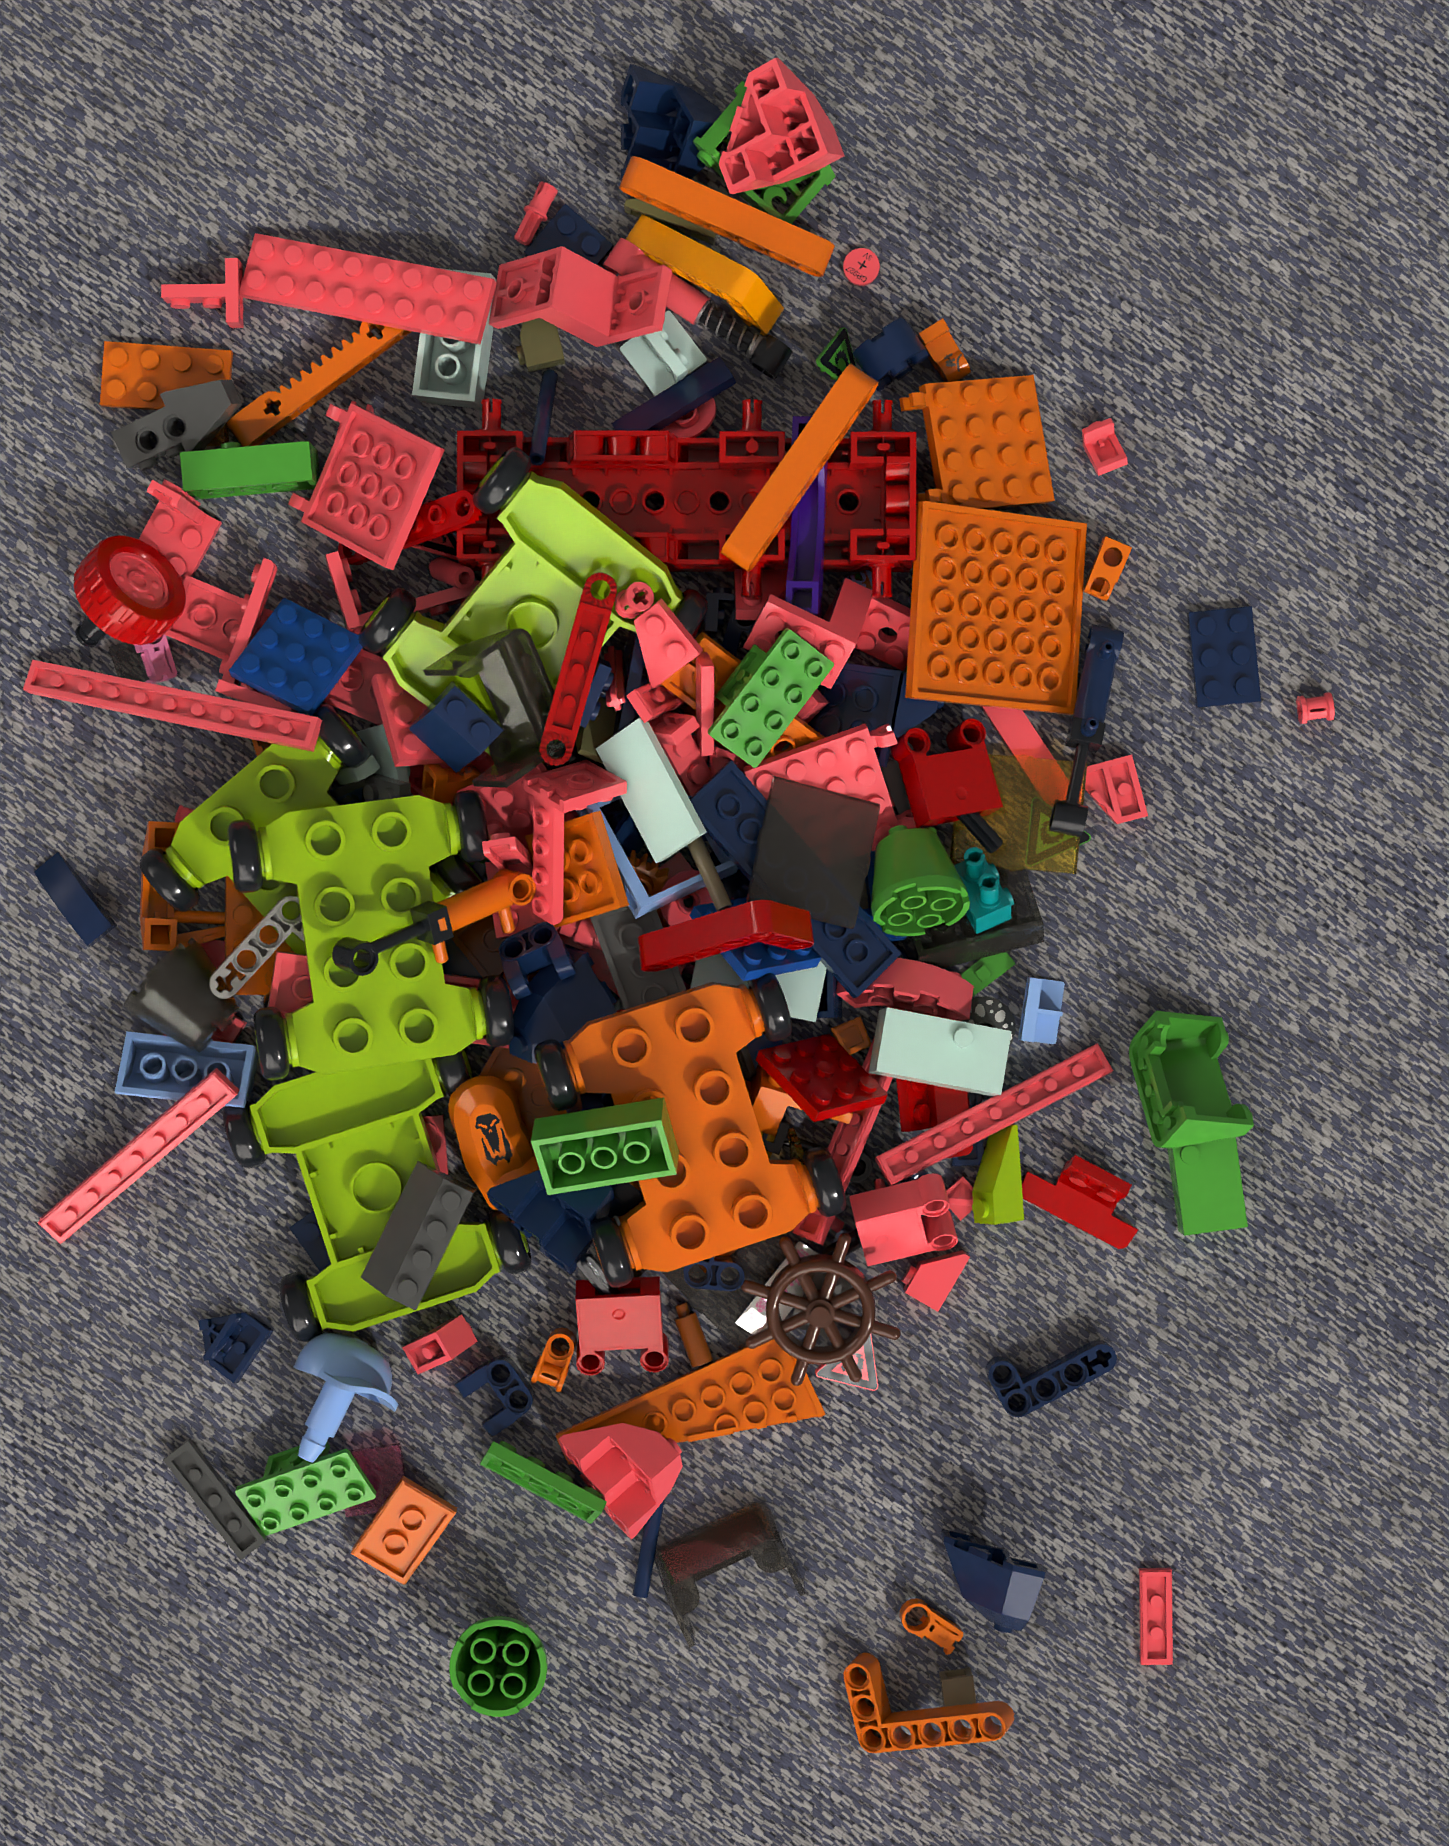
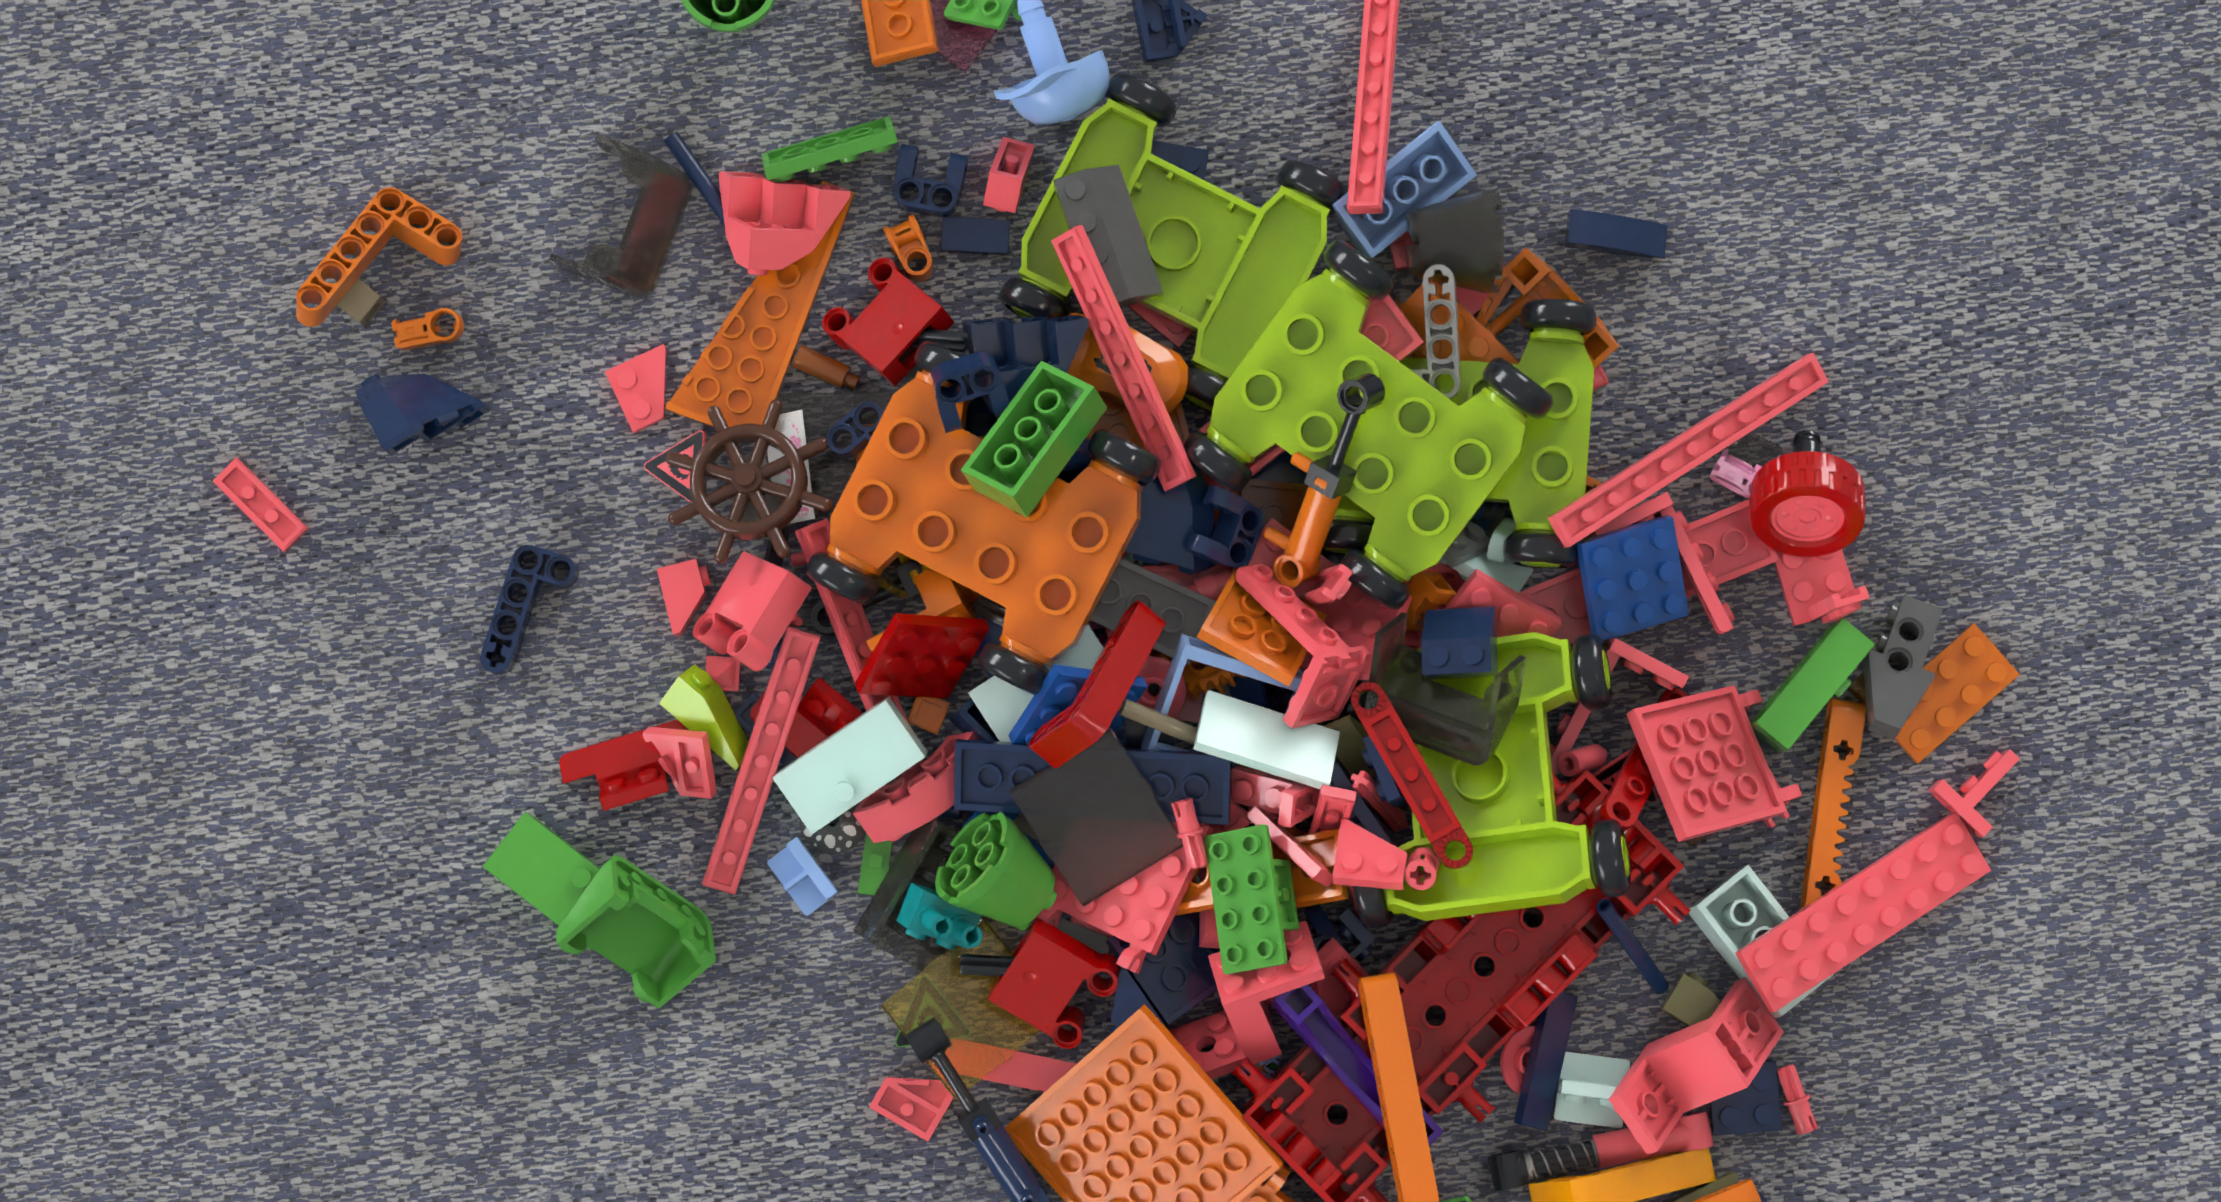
camera: 135 degrees right, 5 degrees down
(488, 1144) = (1123, 356): none -> coral tile
(503, 1325) = (975, 235): none -> dark blue tile
(614, 1226) = (967, 386): none -> dark blue piece
(762, 780) = (1190, 832): none -> coral axle
(827, 1444) = (641, 387): none -> coral wing
(1042, 1164) = (686, 759): none -> coral wing

